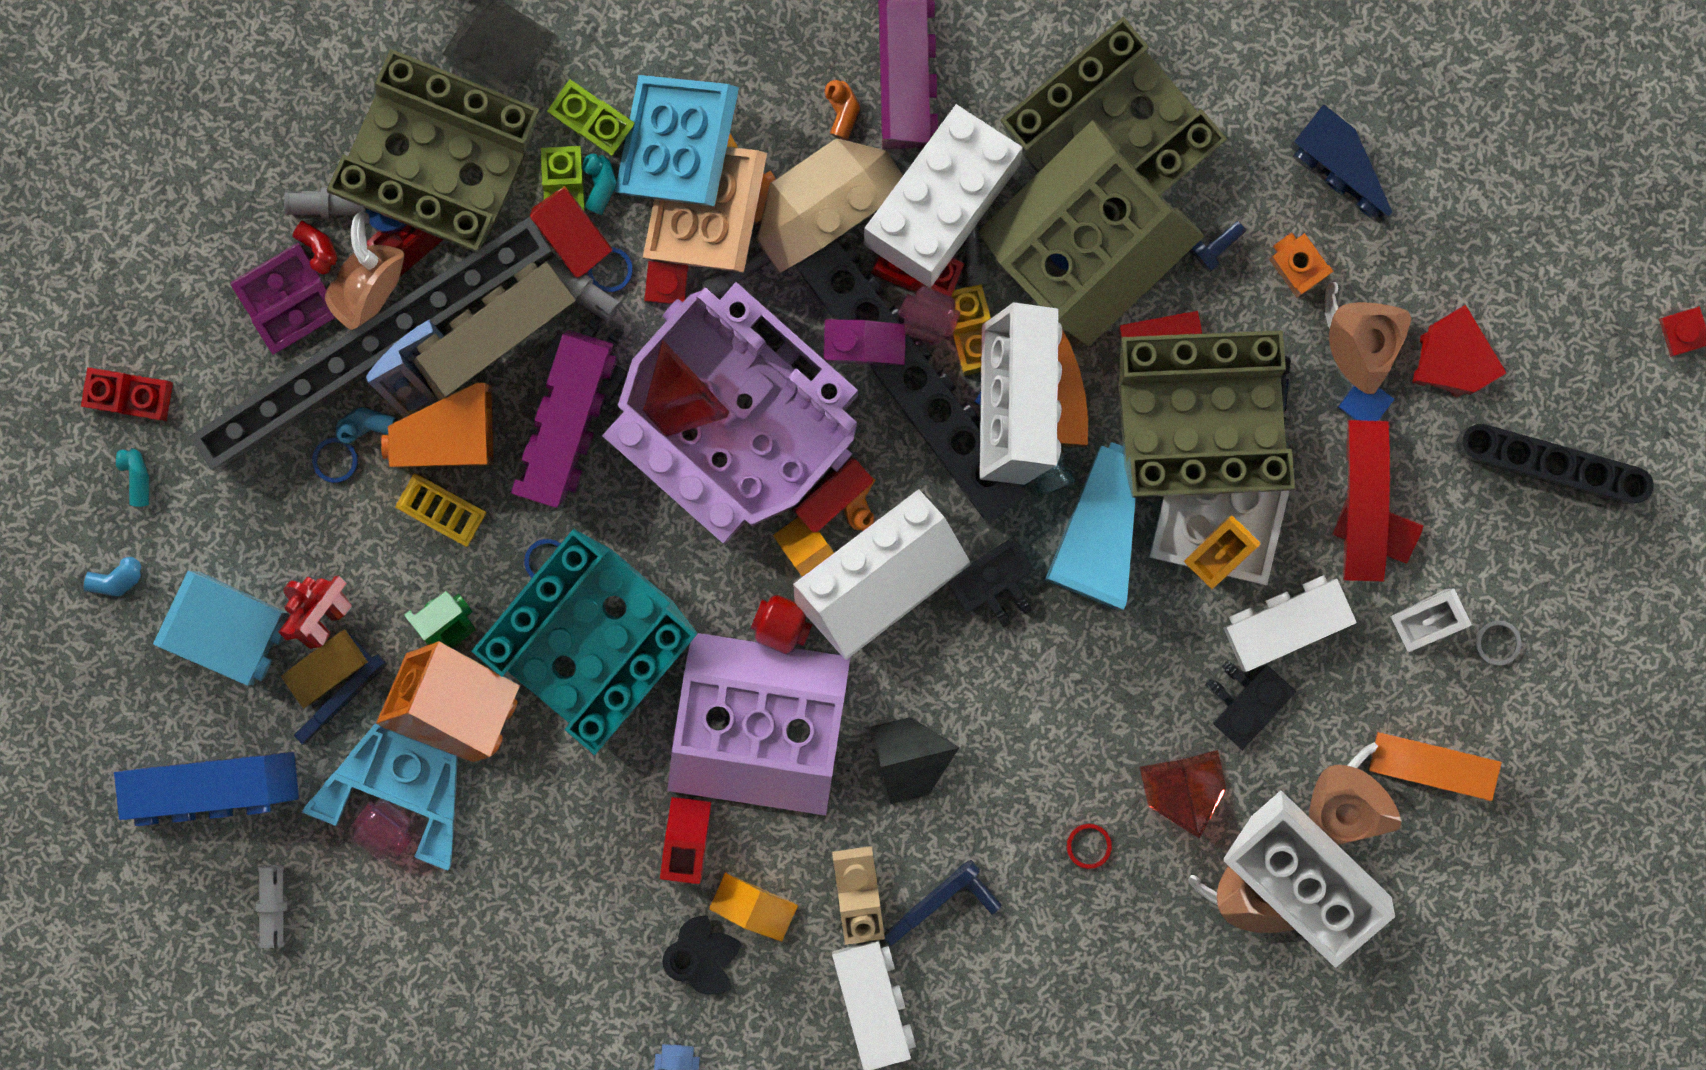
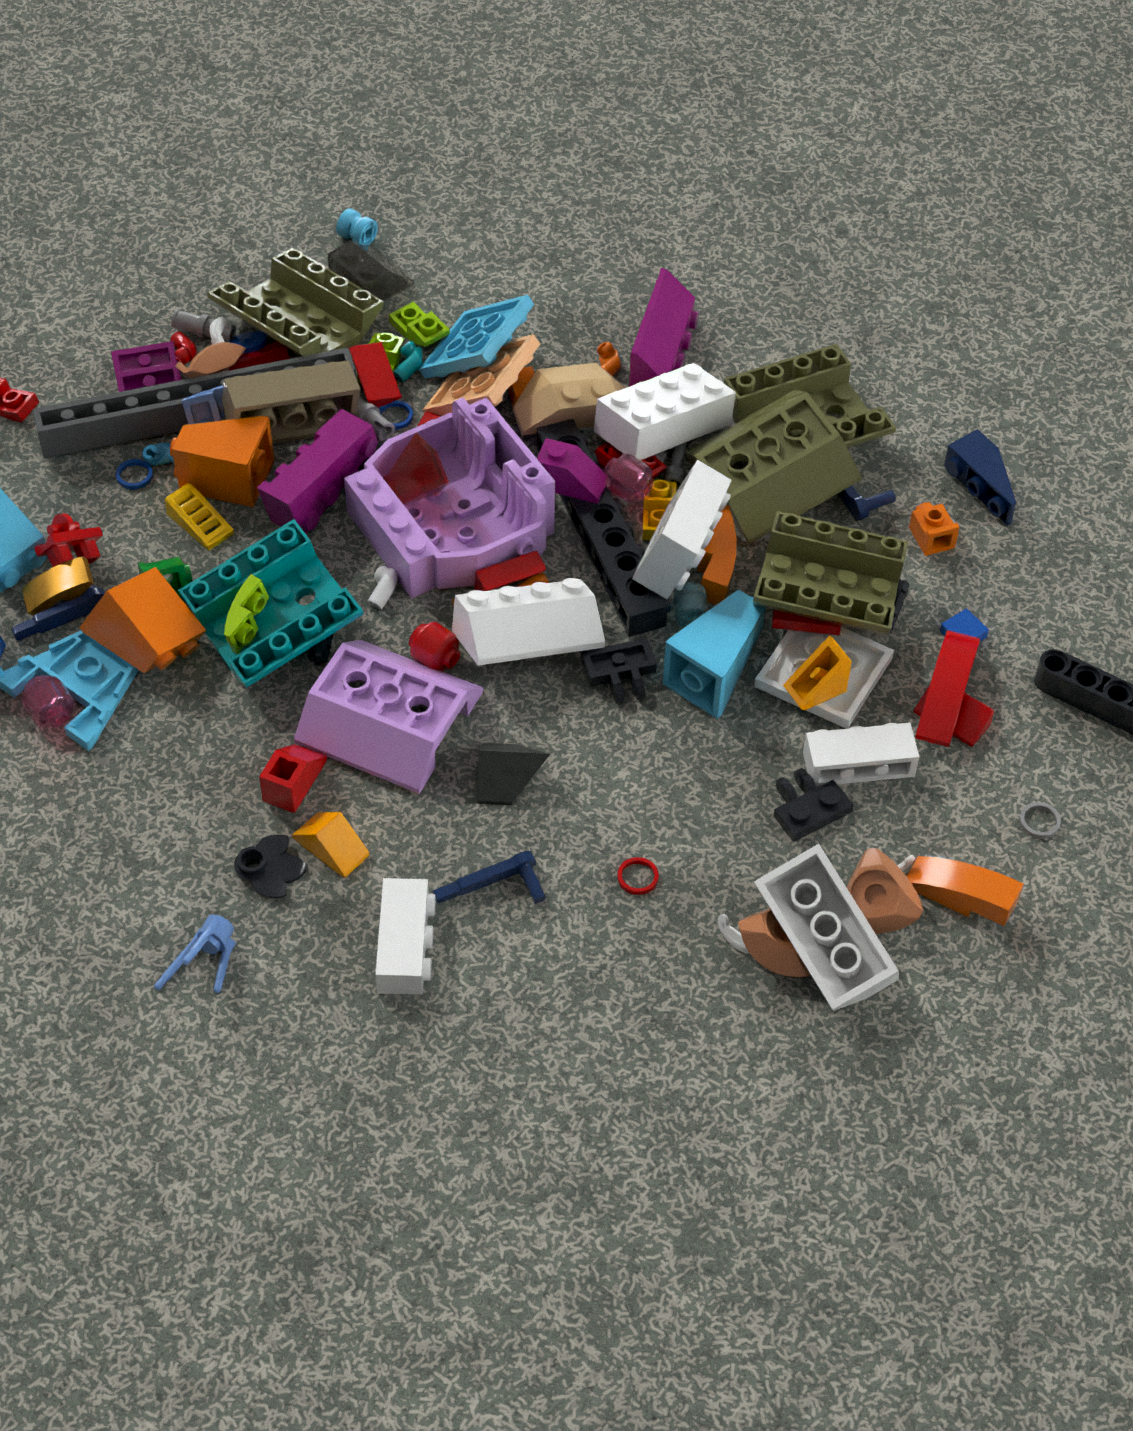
camera: 15 degrees right, 35 degrees down
(560, 675) = (240, 624): none -> lime slope
(694, 545) = (386, 582): none -> white arm
(858, 895) = (425, 849): tan slope -> none
(1185, 789) = (736, 843): clear red slope -> none
(1365, 338) = (975, 581): nougat hat -> none
(1431, 619) = (987, 780): white slope -> none
(1457, 356) = (1048, 616): red slope -> none

